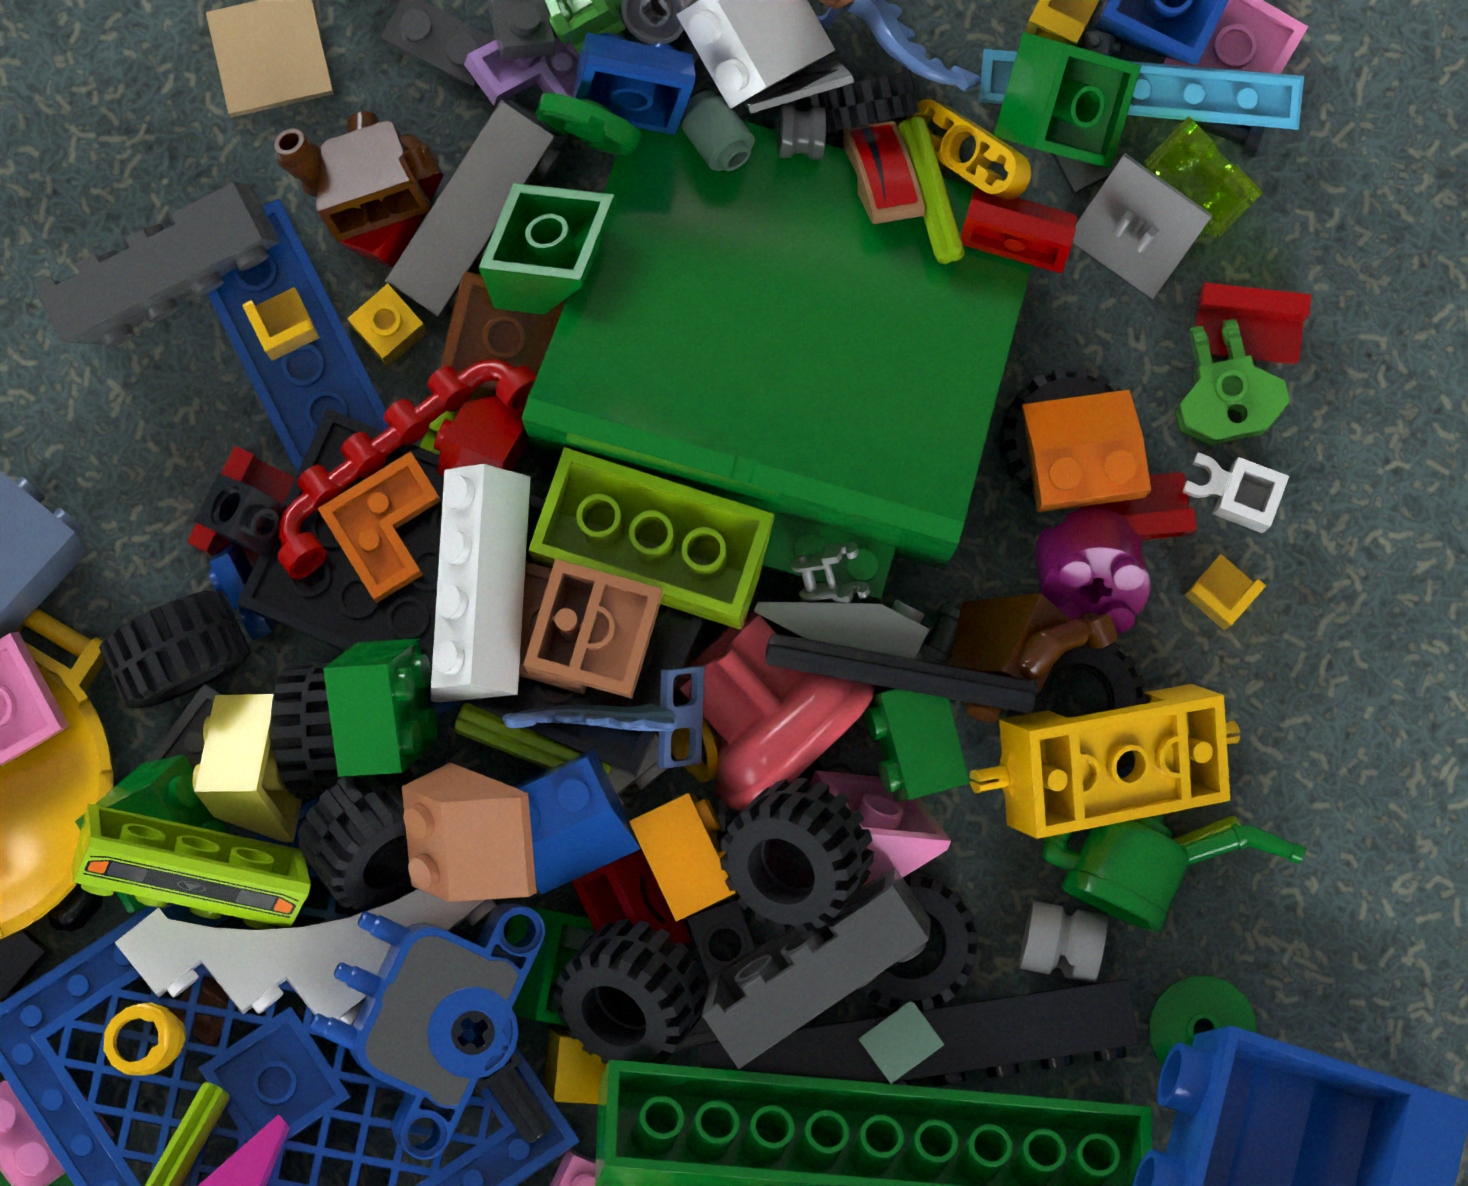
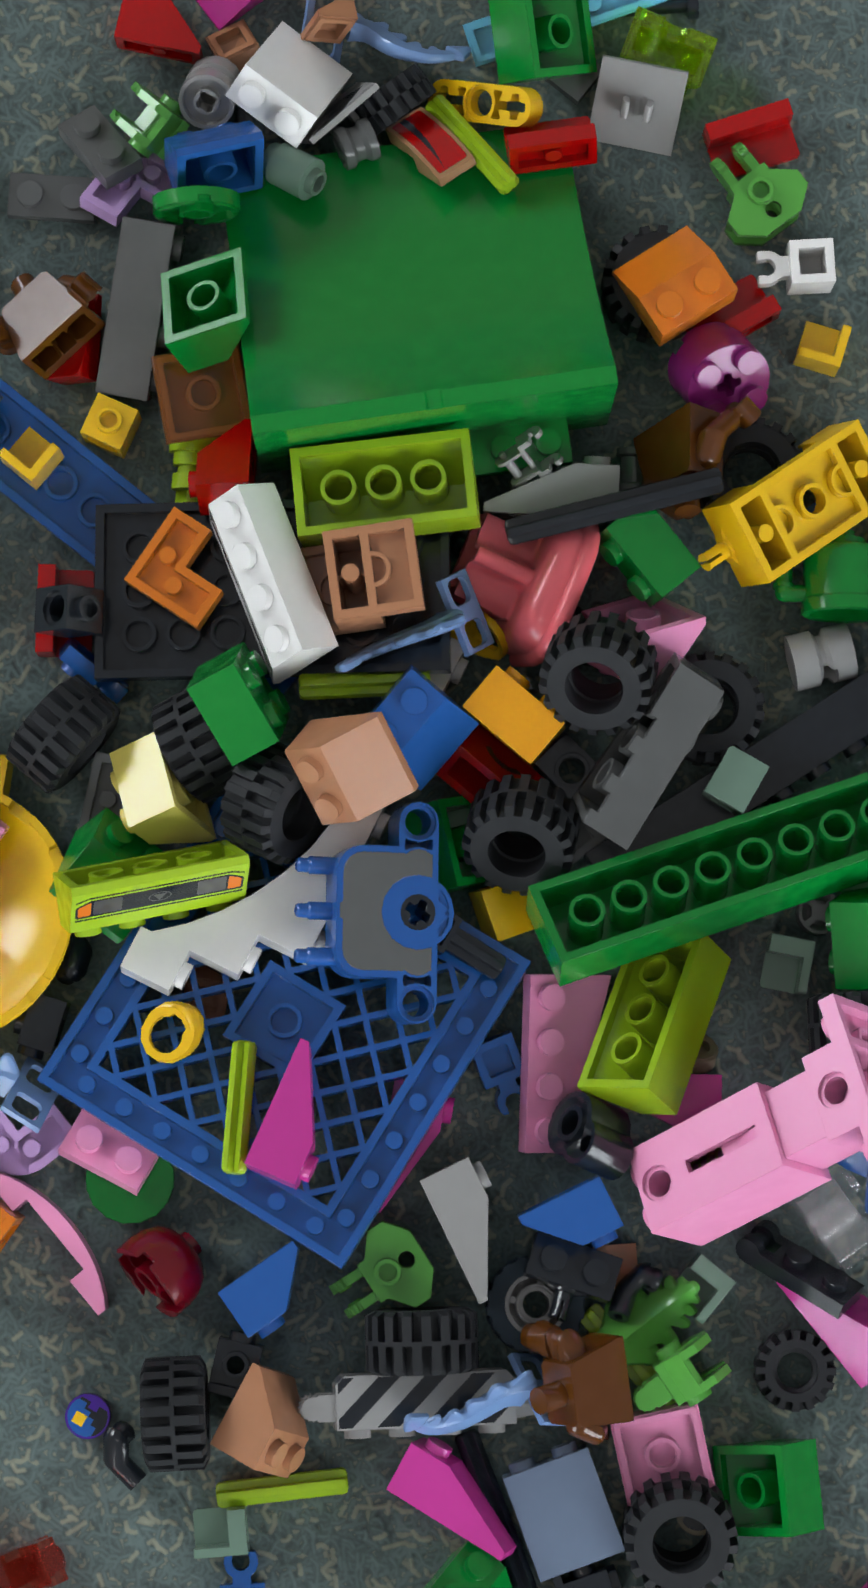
camera: 25 degrees left, 0 degrees up
(302, 552) = (127, 616): red bar -> none

